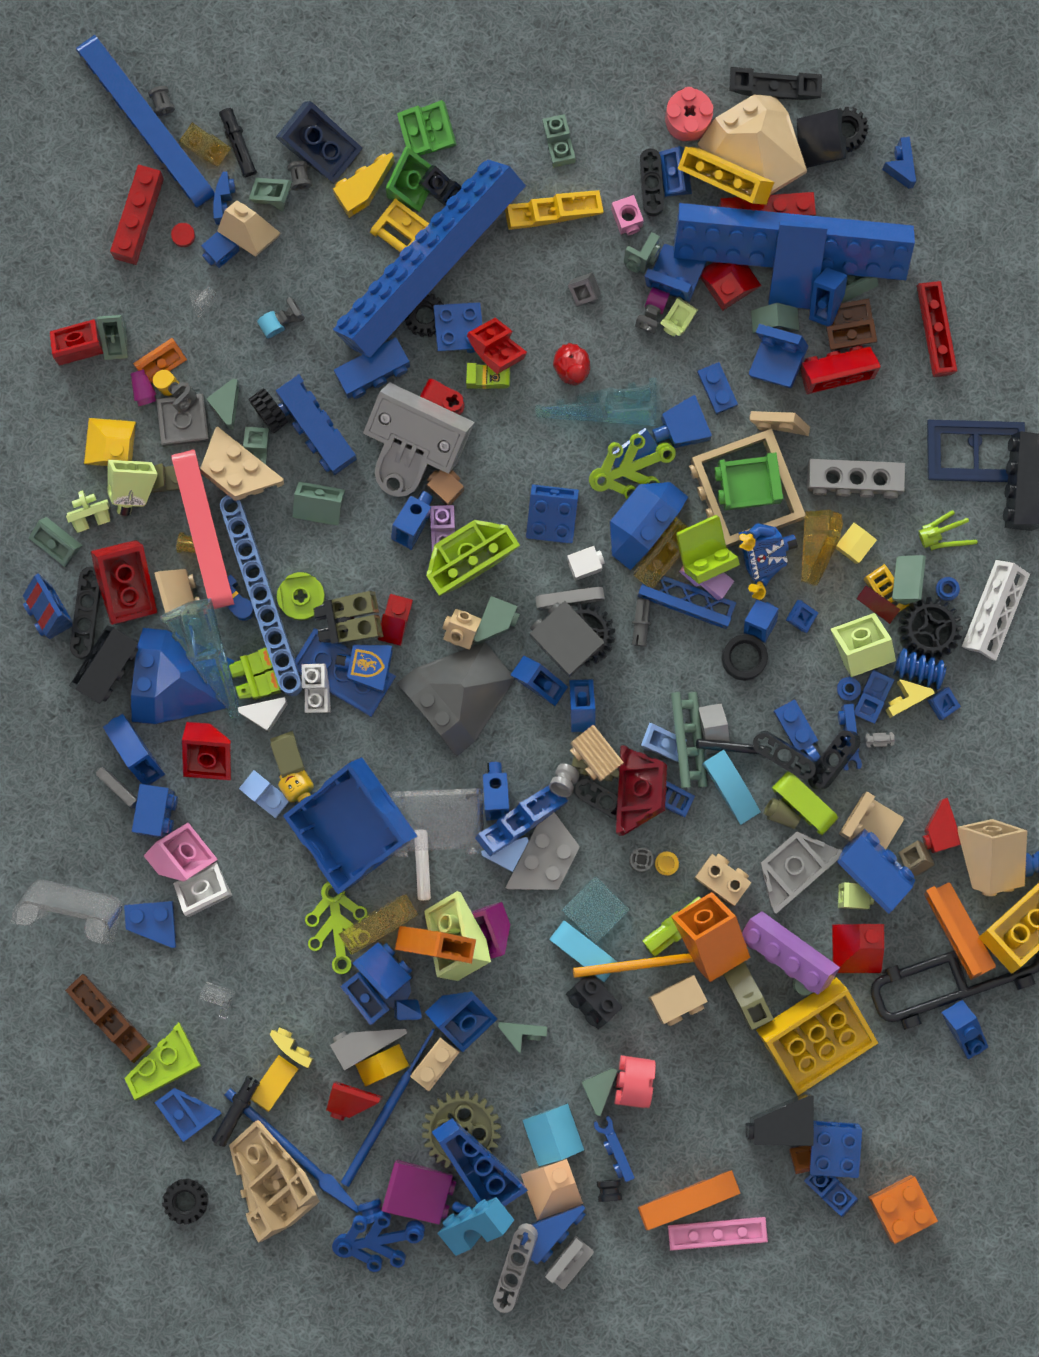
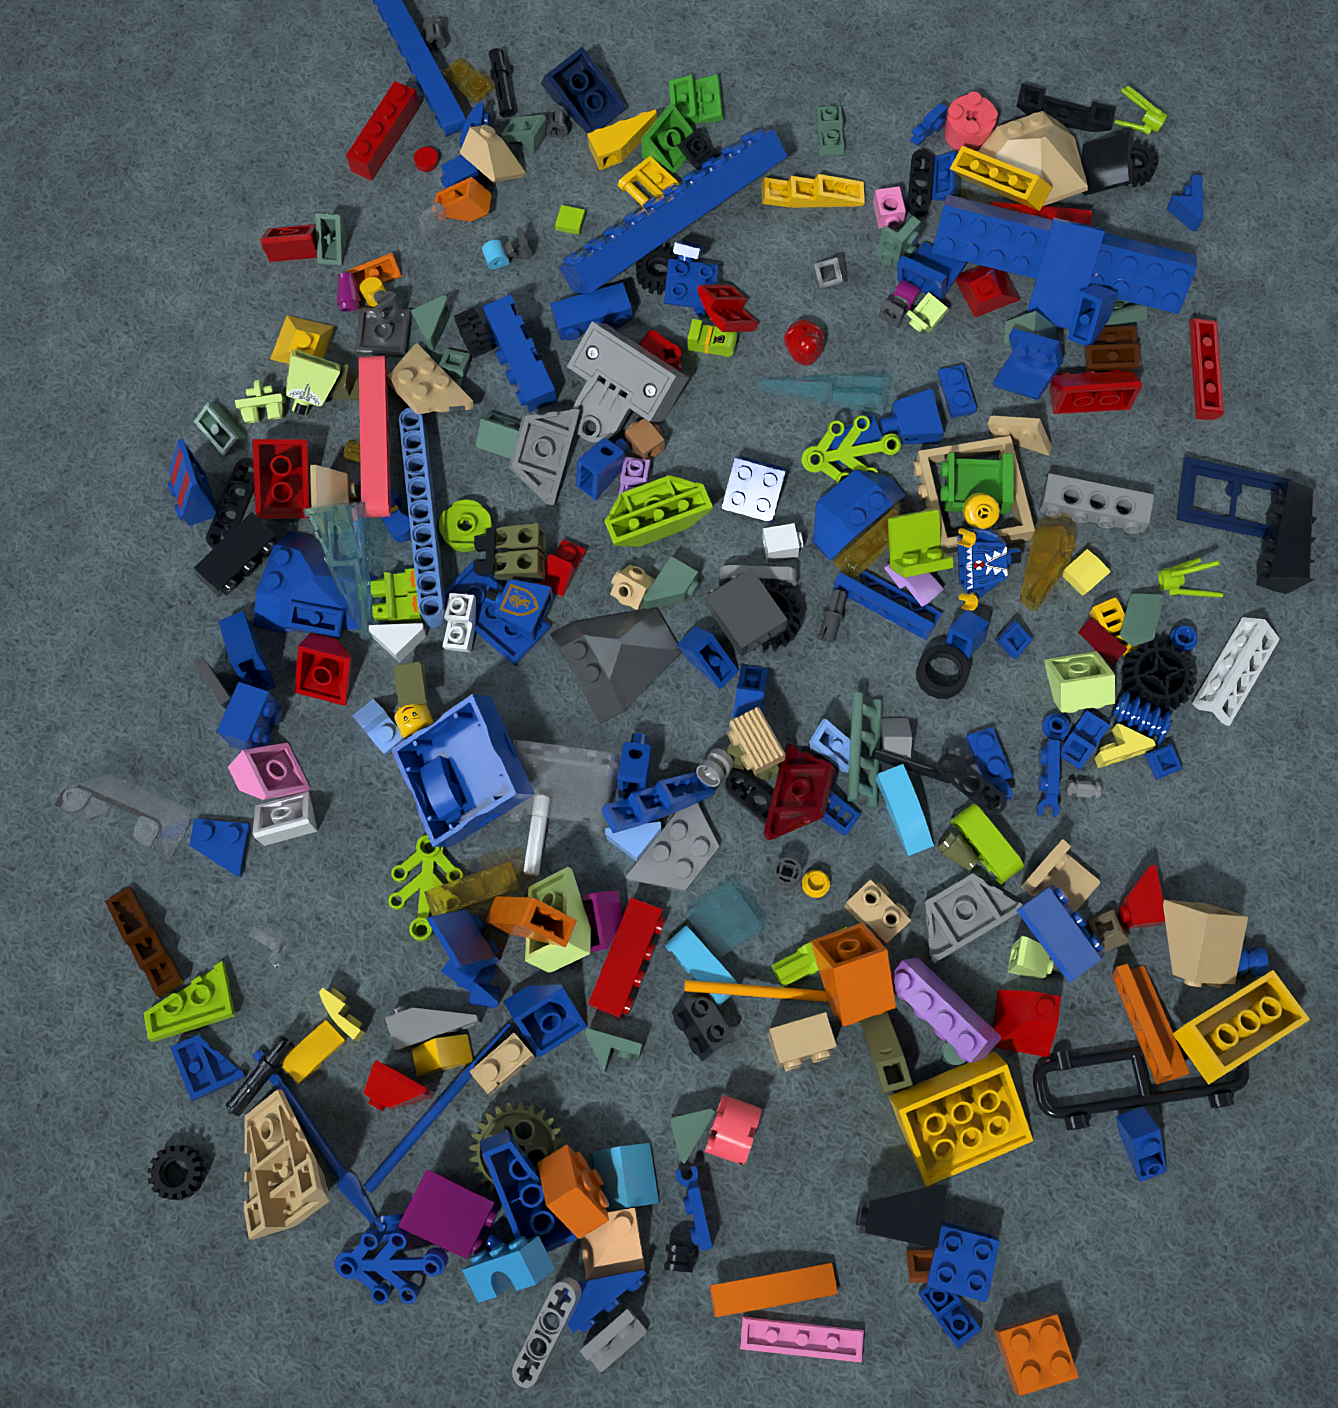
camera: 15 degrees right, 10 degrees down
(187, 709) = (314, 619): none -> blue slope
(229, 276) = (465, 200): none -> orange slope
(332, 275) = (570, 219): none -> lime tile
(335, 846) = (441, 792): none -> blue slope
(357, 515) = (543, 450): none -> light grey wing
(365, 998) = (438, 971): blue brick -> none
(450, 293) = (687, 250): none -> plate
(515, 1156) = (573, 1191): none -> orange brick
(519, 957) = (626, 958): none -> red brick
(655, 117) = (932, 122): none -> blue plate
(755, 511) = (977, 502): none -> yellow head
(838, 742) = (1040, 799): black beam -> none
(858, 78) = (1153, 118): none -> lime plant

